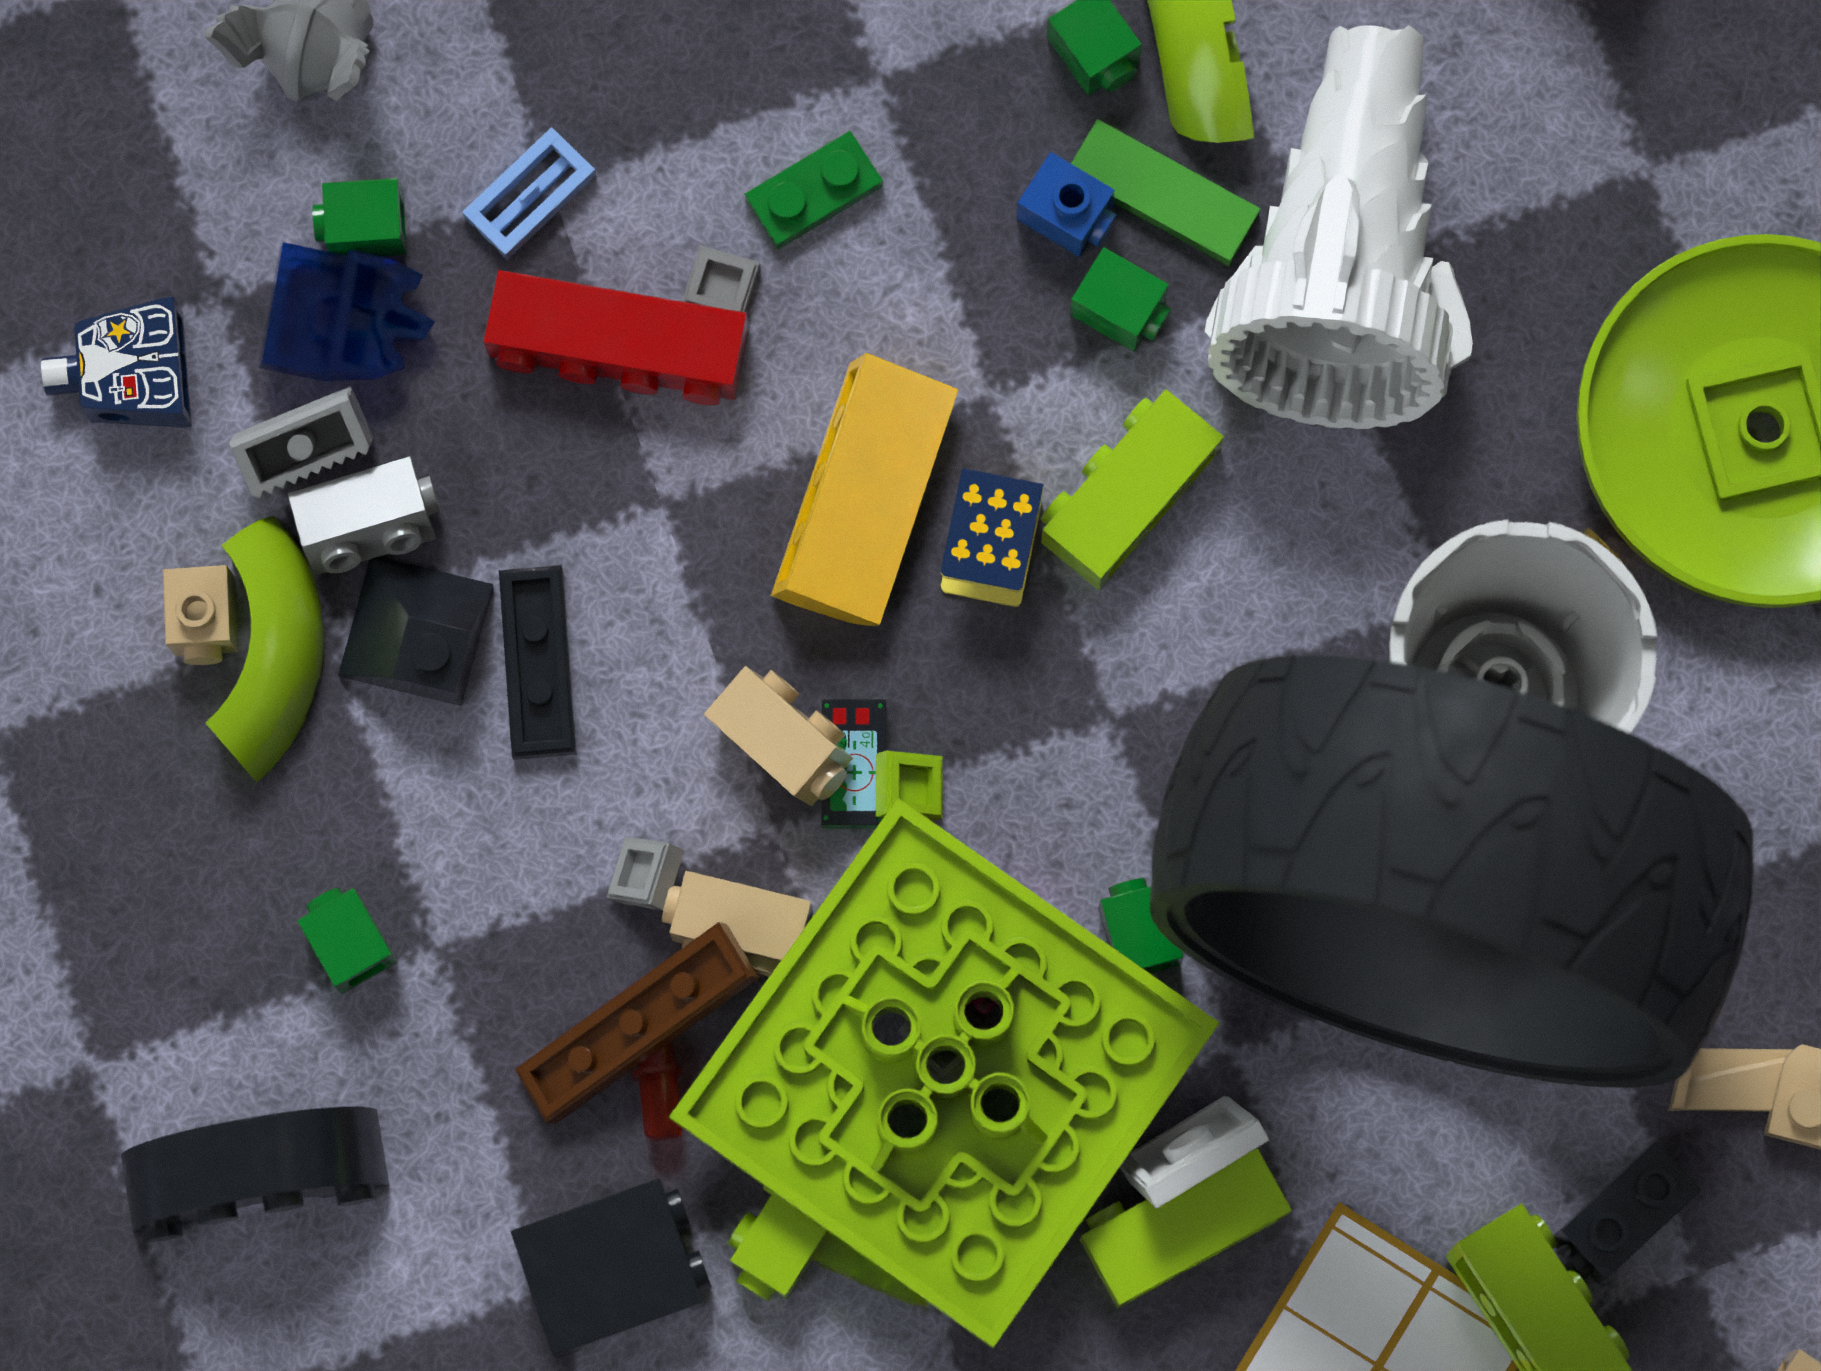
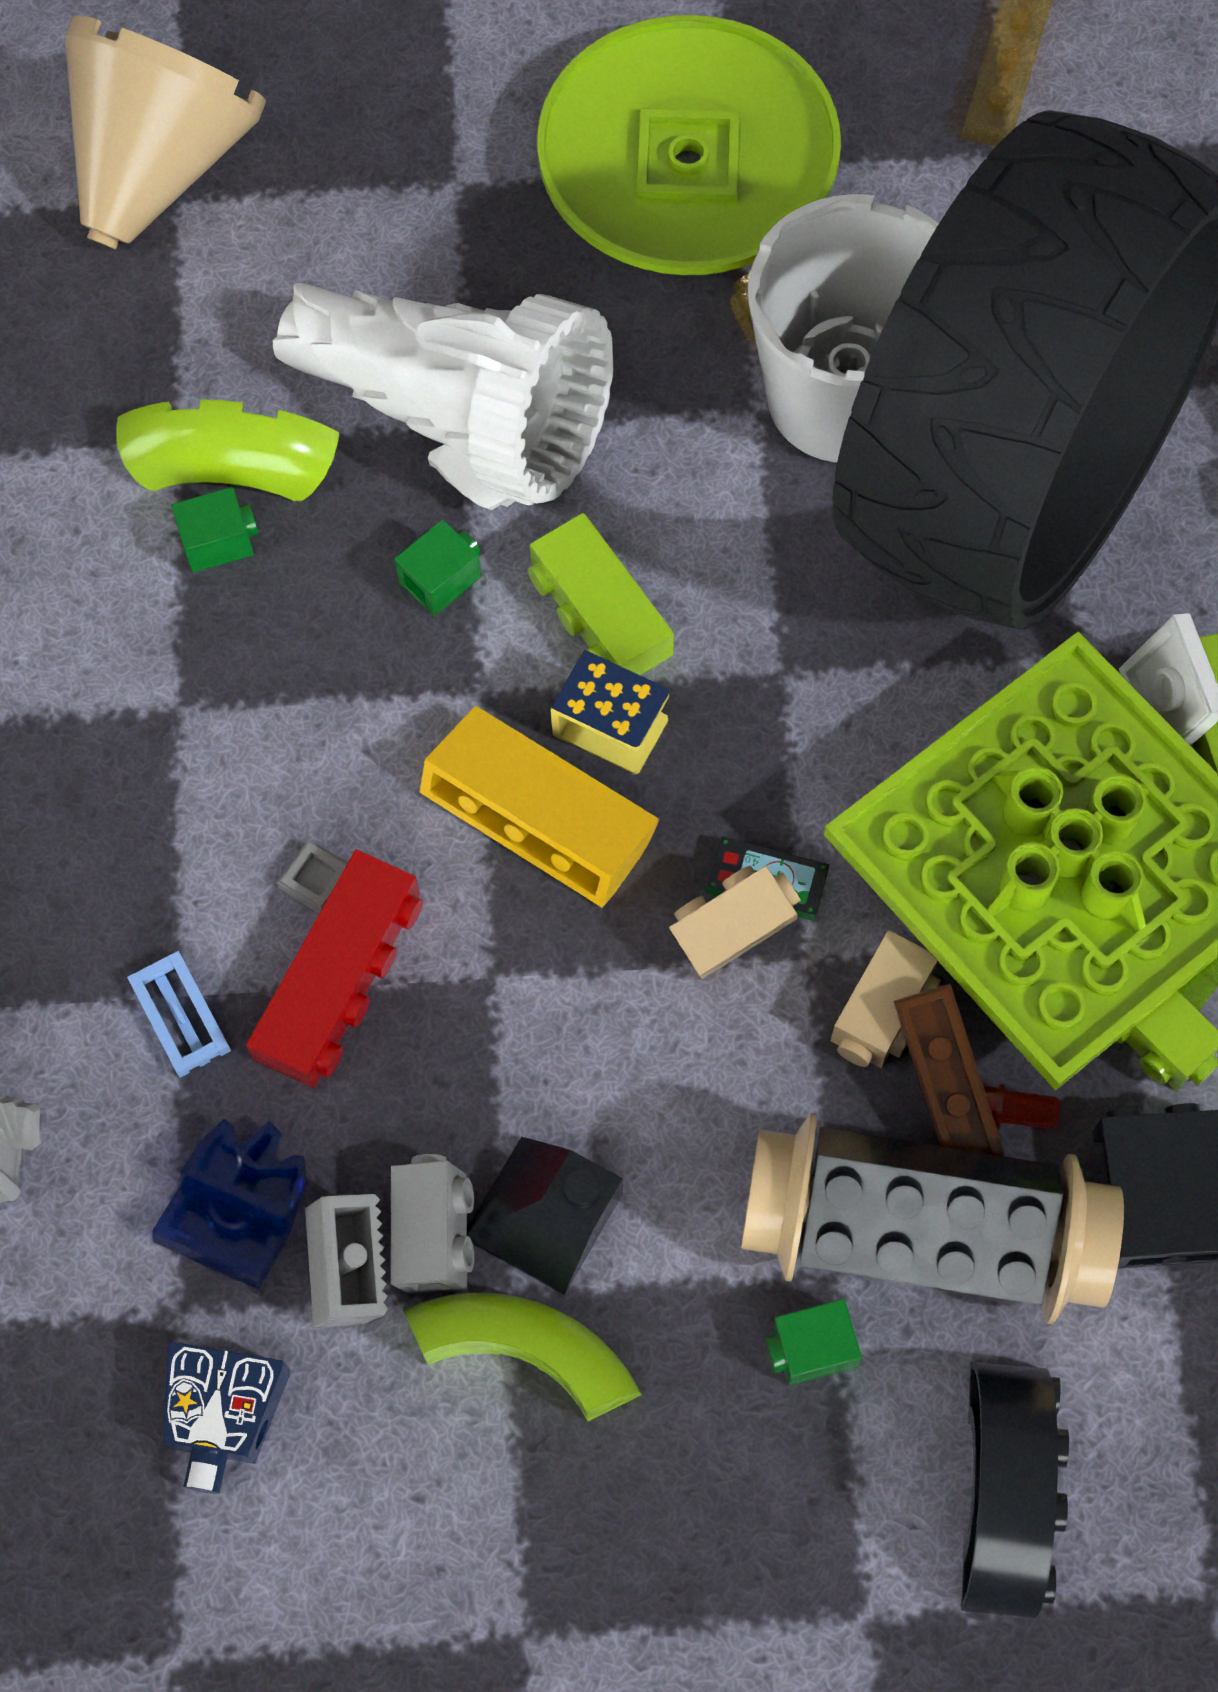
camera: 75 degrees left, 10 degrees down
(200, 613) = (474, 1399): tan brick -> none
(362, 217) = (152, 1158): green brick -> none
(494, 1016) = (935, 1217): none -> brick
(537, 662) = (603, 1116): black tile -> none
(645, 873) = (820, 1069): light grey tile -> none
(813, 190) = (259, 781): green plate -> none
(911, 778) = (800, 837): lime tile -> none
(1067, 206) = (345, 585): blue brick -> none
(1131, 928) = (966, 684): green brick -> none
(1167, 193) = (356, 518): bright green tile -> none

